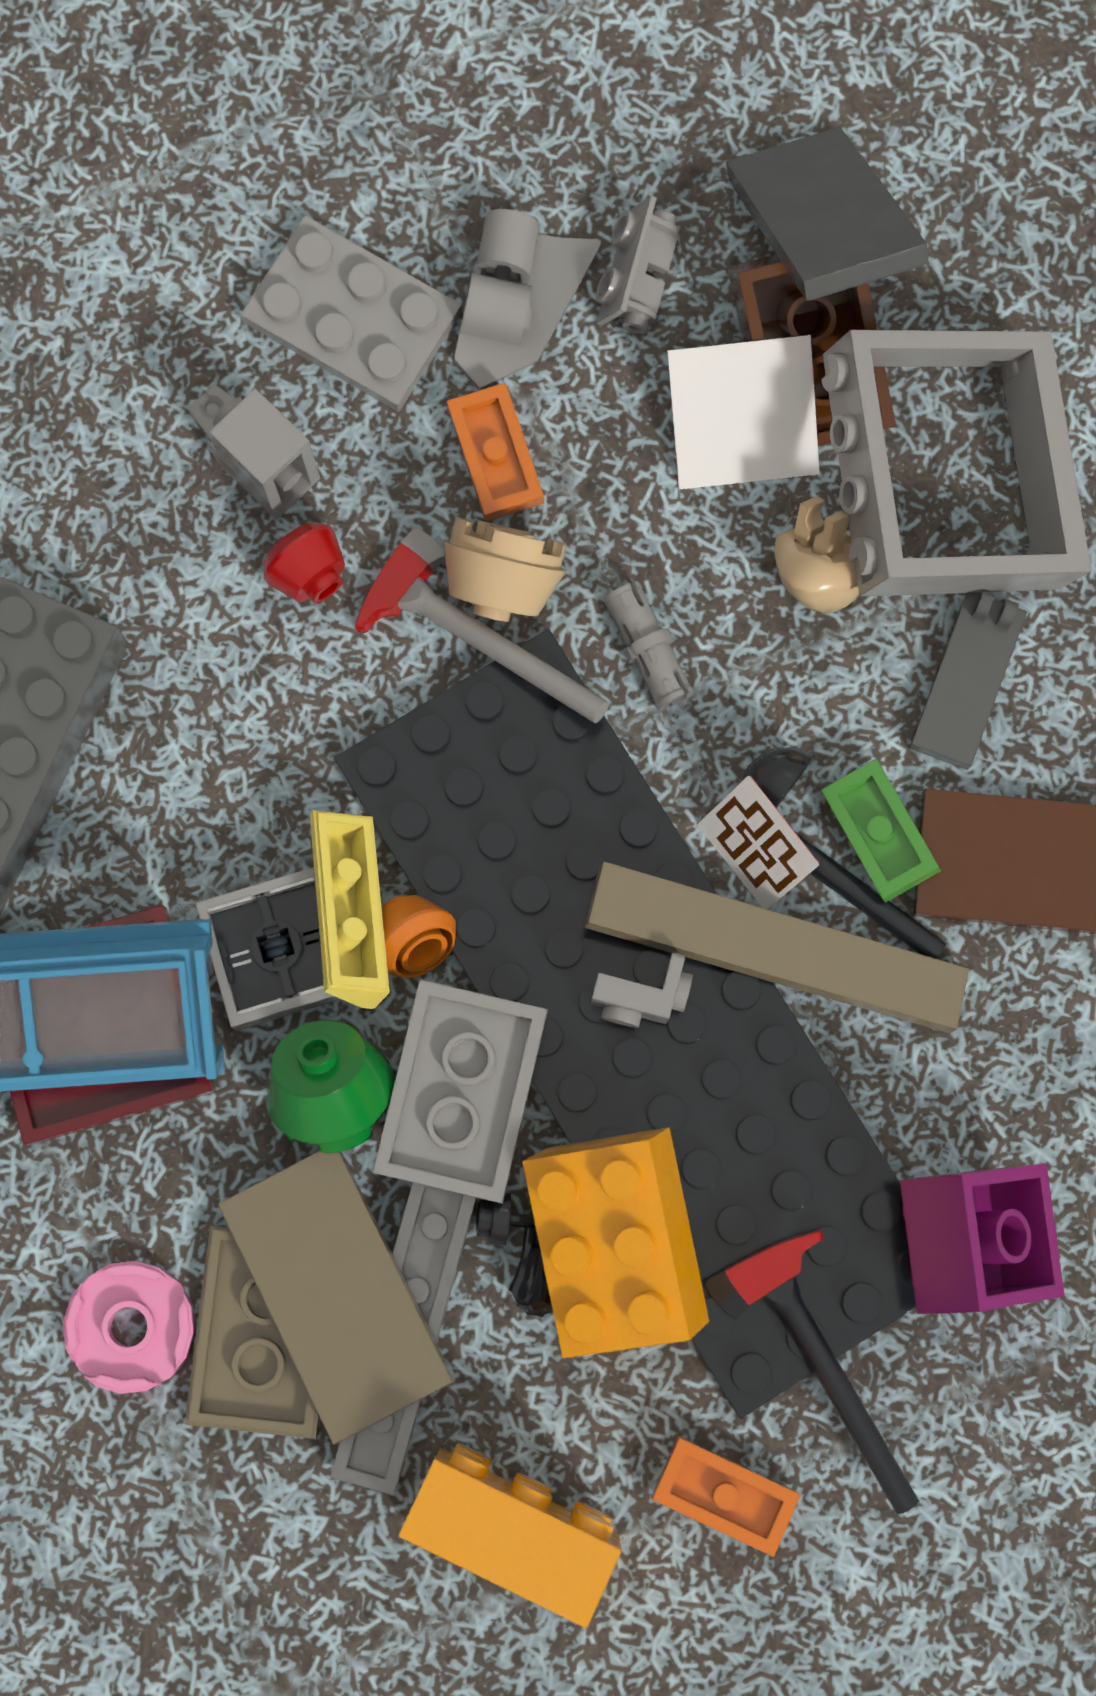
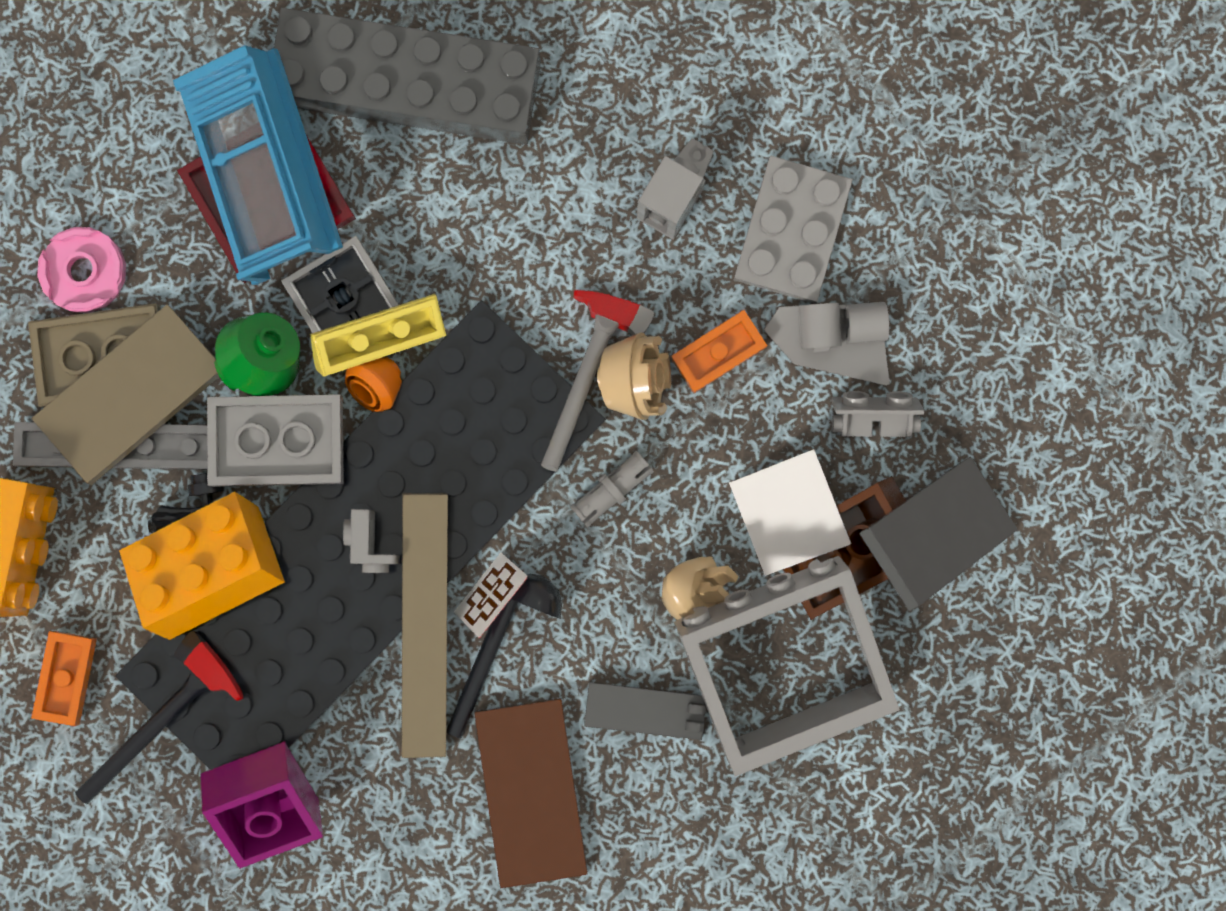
camera: 75 degrees right, 5 degrees up
(306, 563) = (606, 246): red cone -> none
(881, 830) = (523, 675): bright green plate -> none

